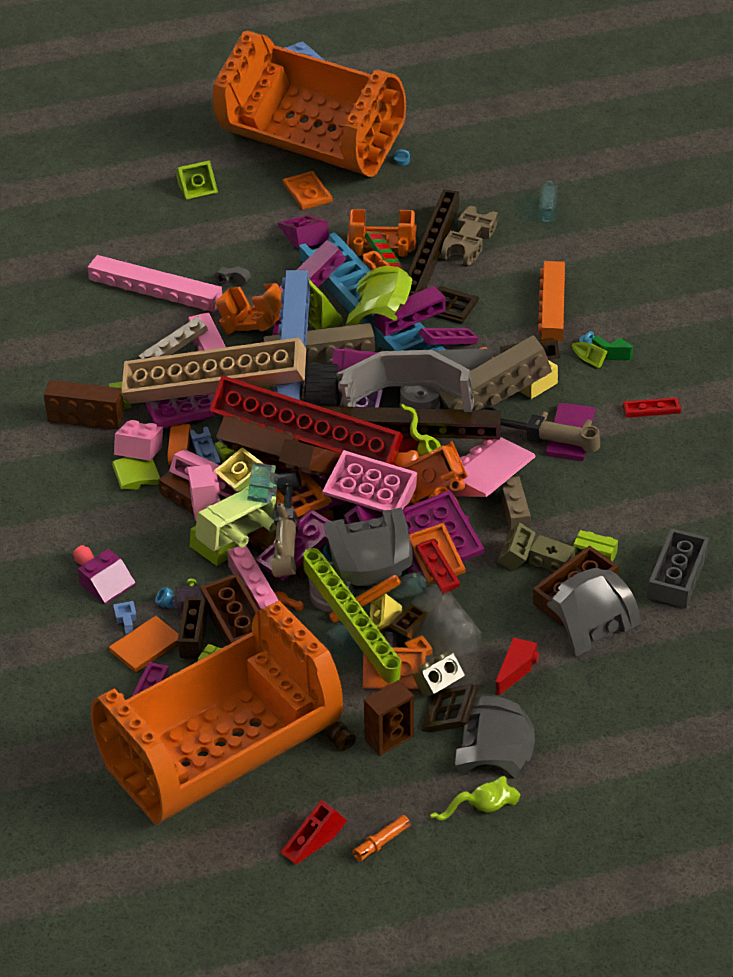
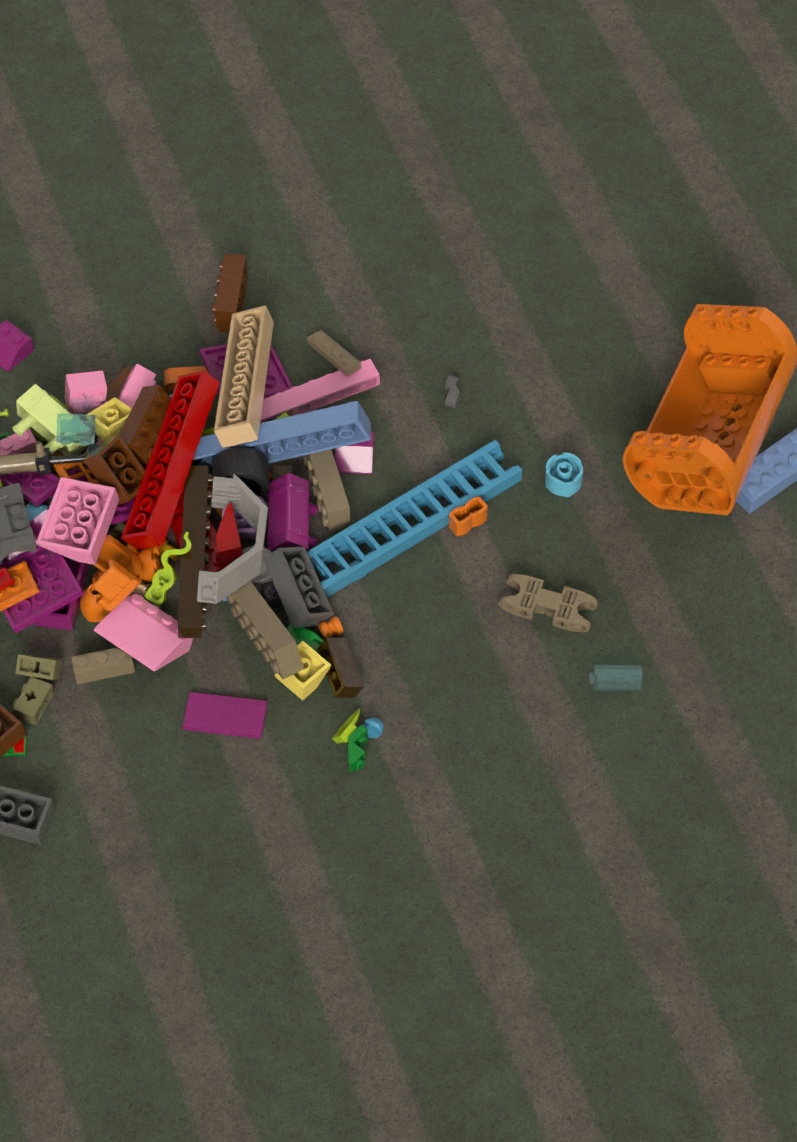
camera: 85 degrees right, 15 degrees up
(82, 555) = (35, 328): coral cone -> none
(134, 472) = (152, 350): lime slope -> none
(138, 440) = (183, 342): bright pink brick -> none
(154, 283) = (432, 328): bright pink brick -> none
(196, 180) = (614, 340): lime slope -> none
(240, 316) = (385, 404): orange container -> none
(305, 230) = (535, 445): magenta slope -> none
(307, 190) = (610, 446): orange tile -> none
(321, 312) = (387, 467): lime slope -> none
(322, 263) = (443, 454): magenta brick -> none
(337, 213) = (564, 474): none -> medium azure brick
(380, 245) = (491, 525): tile -> none
(382, 293) = (387, 511): lime piece -> none
(389, 397) = (228, 538): none -> red slope
(400, 238) = (529, 513): orange container -> none
(401, 157) = (690, 529): dark azure tile -> none
(416, 309) = (380, 544): magenta brick -> none
(433, 240) = (506, 562): dark brown brick -> none
(448, 336) = (351, 586): magenta plate -> none
(457, 295) = (444, 599): dark brown piece -> none
(538, 428) = (213, 681): dark tan piece -> none
(552, 307) = (436, 688): orange brick -> none
(605, 545) = (43, 739): lime brick -> none
(651, 407) = (267, 792): red tile -> none

